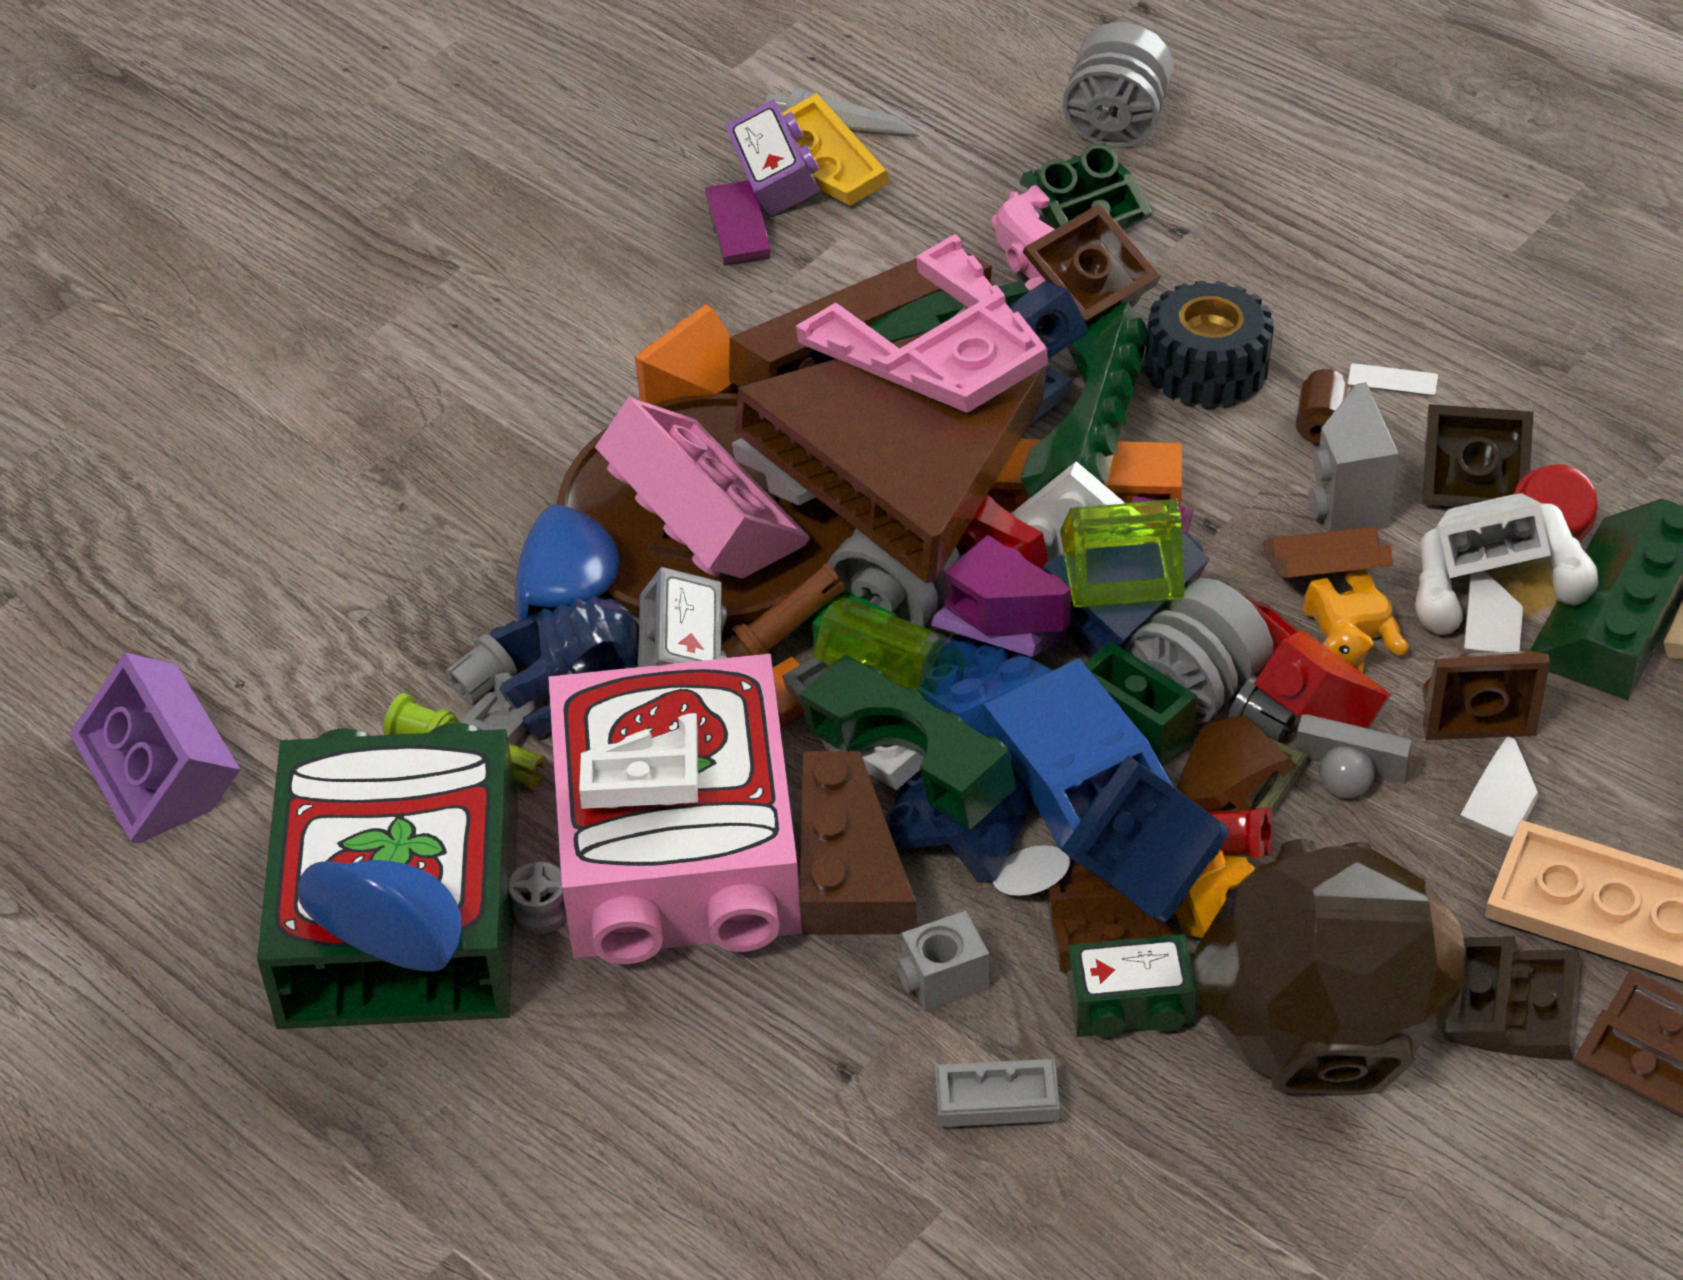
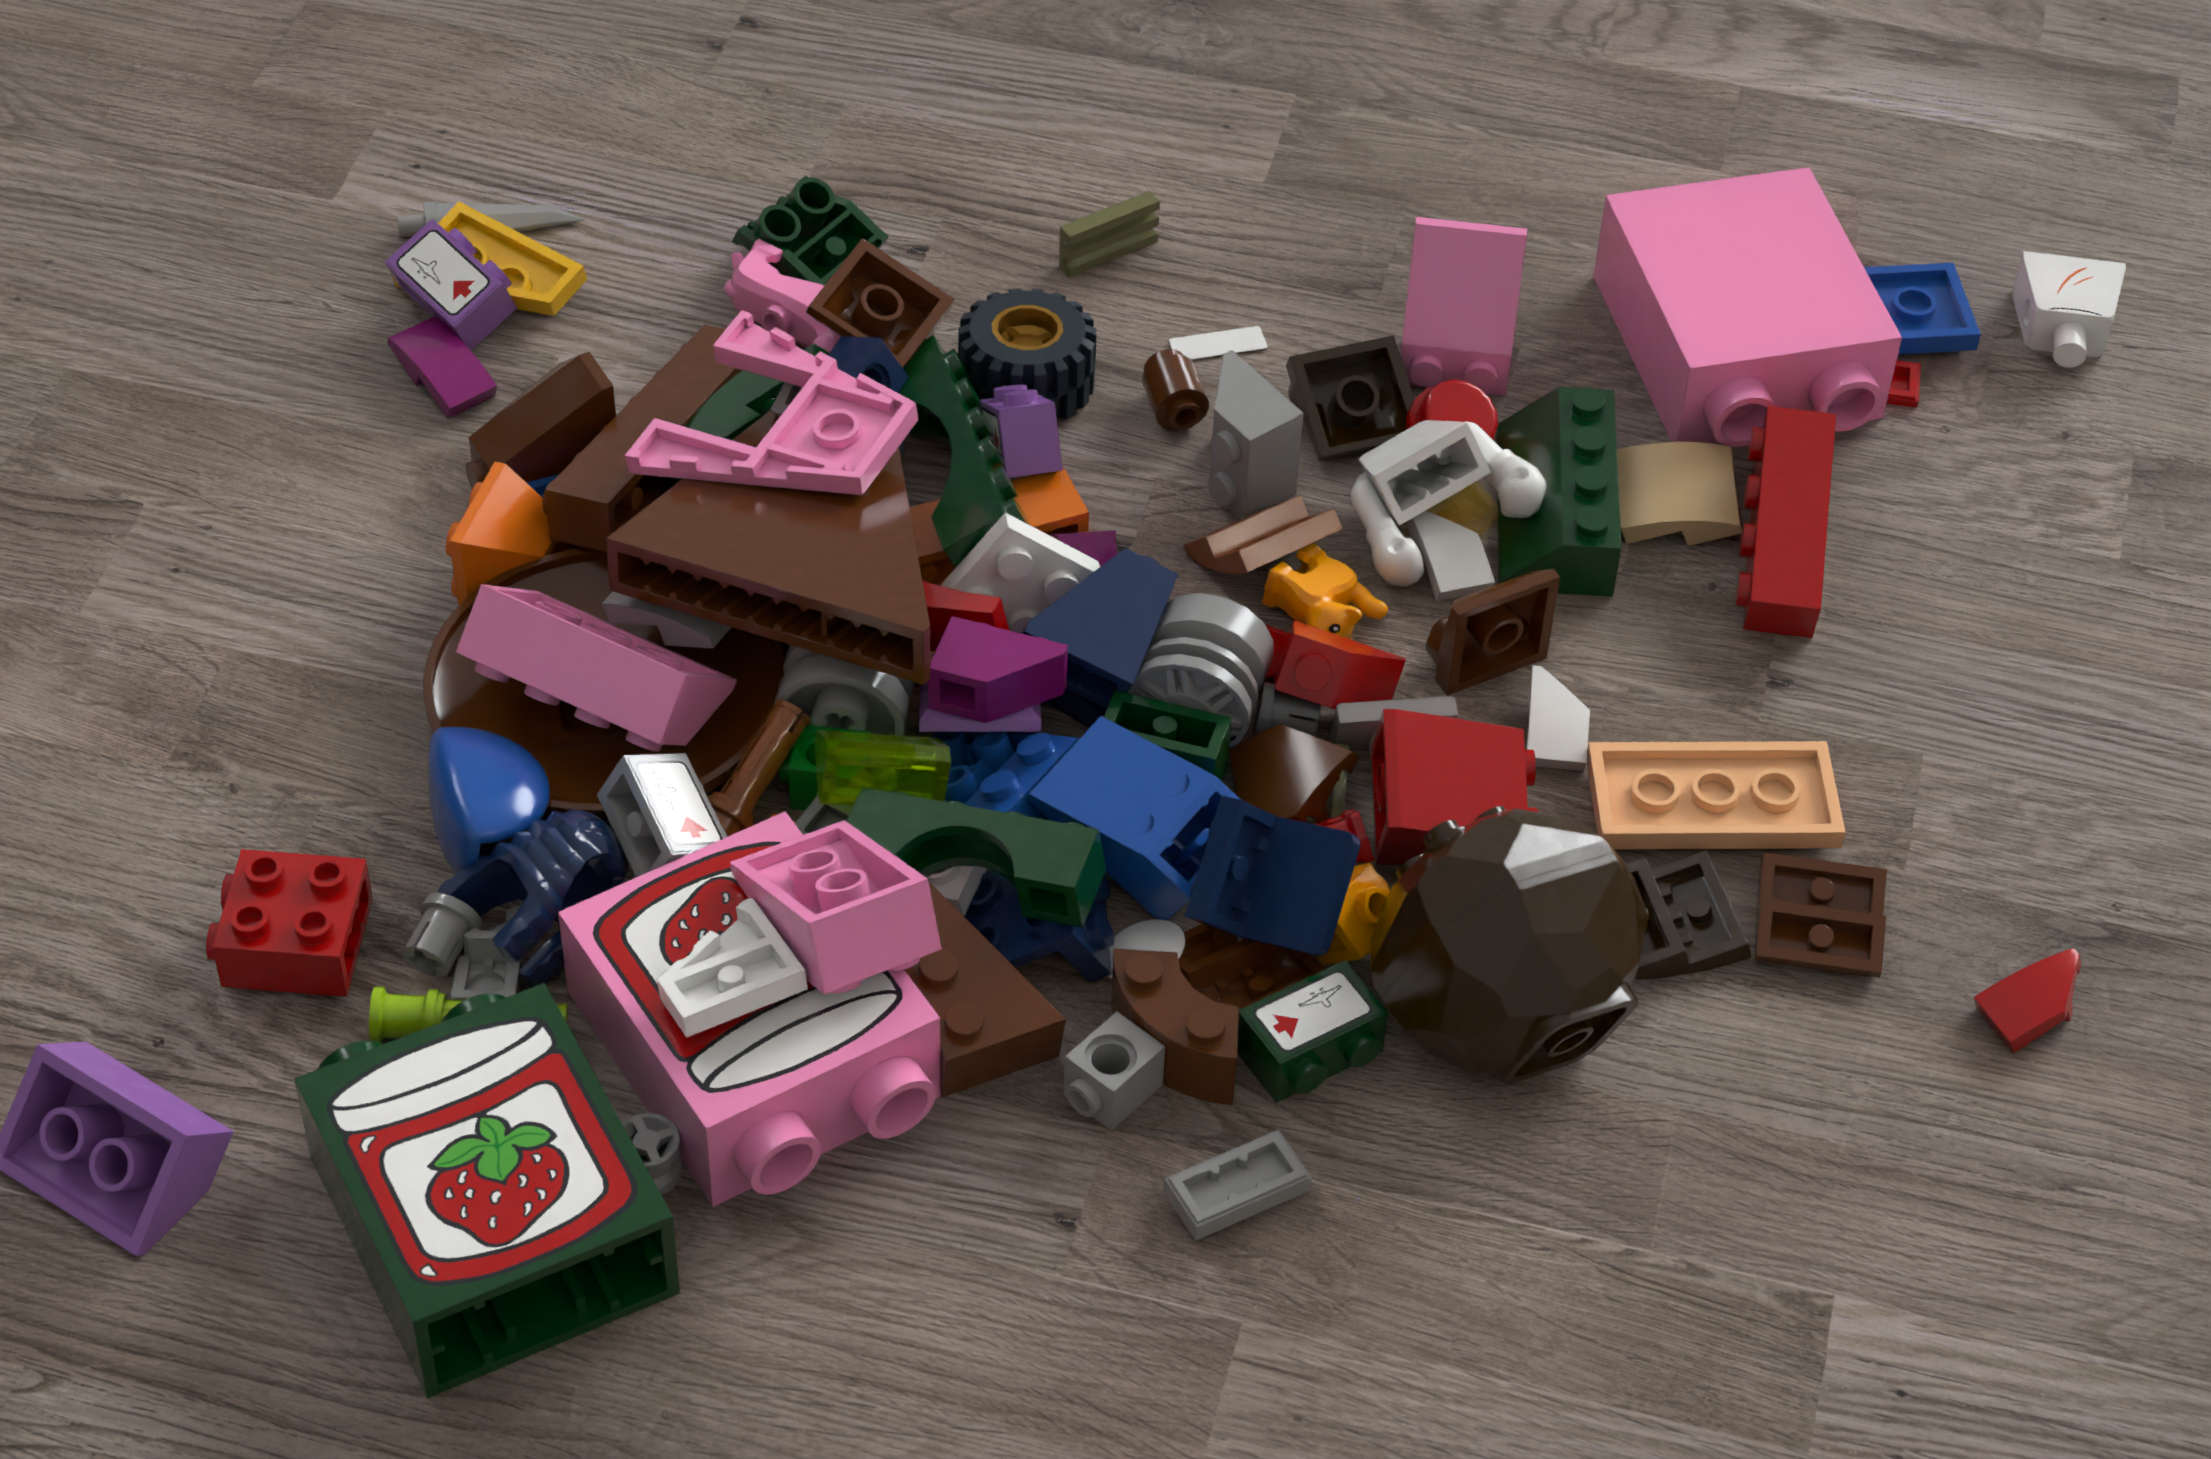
camera: 30 degrees left, 0 degrees up
(374, 623) = (291, 922): none -> red brick
(384, 911) = (538, 1219): blue piece -> none
(758, 744) = (842, 905): none -> bright pink slope
(774, 286) = (546, 423): none -> reddish brown slope
(1024, 954) = (1194, 1029): none -> reddish brown brick
(1118, 85) = (787, 110): light grey wheel -> none
(1123, 526) = (1070, 571): clear neon green tile -> none
(1158, 403) = (1024, 430): none -> medium lavender brick
(1342, 264) = (1108, 234): none -> olive tile
(1356, 796) = (1439, 772): none -> red slope
(1607, 402) = (1462, 303): none -> bright pink slope

